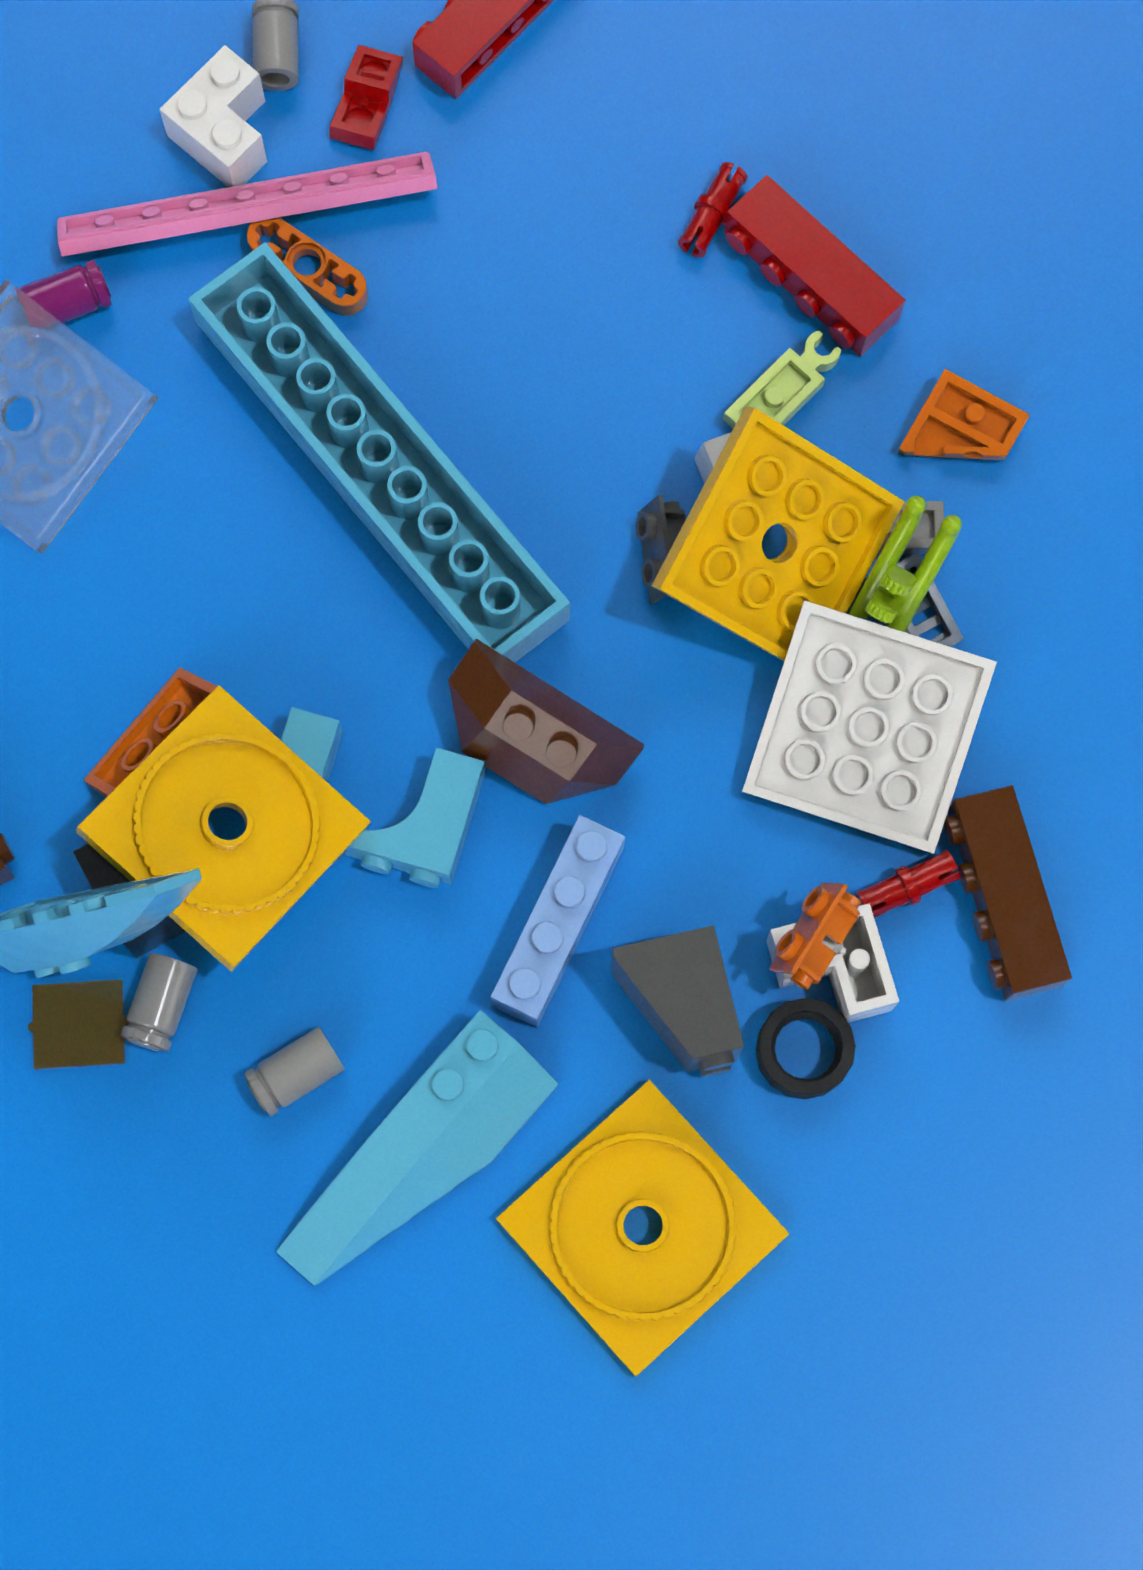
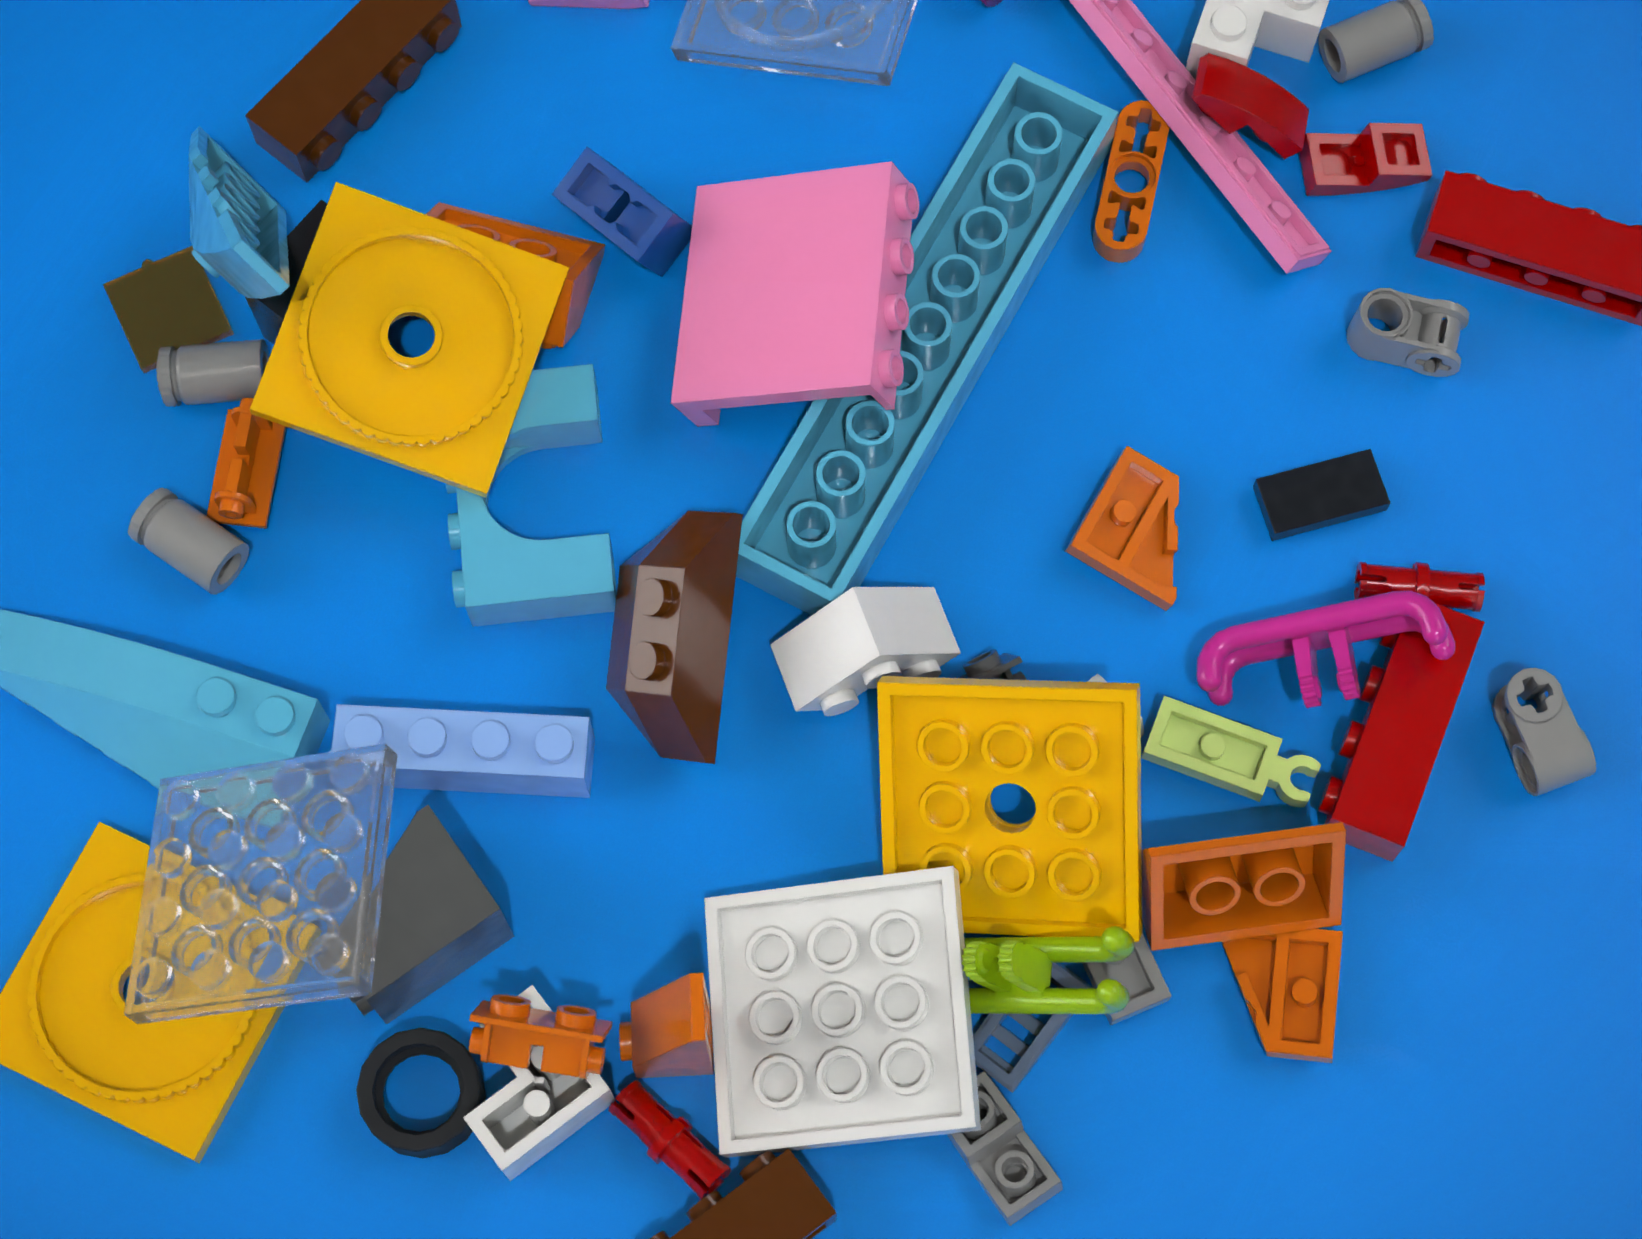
camera: 70 degrees right, 5 degrees down
(170, 636) = (624, 212): none -> blue brick
(247, 1007) = (246, 469): none -> orange hinge
(289, 150) = (1244, 97): none -> red slope
(303, 533) = (795, 290): none -> bright pink panel
(523, 121) = (1415, 331): none -> light grey piece
(584, 380) = (1133, 528): none -> orange wing
(604, 594) = (859, 641): none -> white brick
(614, 243) = (1321, 494): none -> black tile
(616, 1097) = (263, 886): none -> clear plate
(727, 282) = (1315, 630): none -> dark pink piece
(843, 840) = (670, 1031): none -> orange slope
(857, 179) = (1543, 741): none -> light grey piece
(889, 410) = (1243, 886): none -> orange slope
(1019, 659) = (1005, 1157): none -> light grey slope

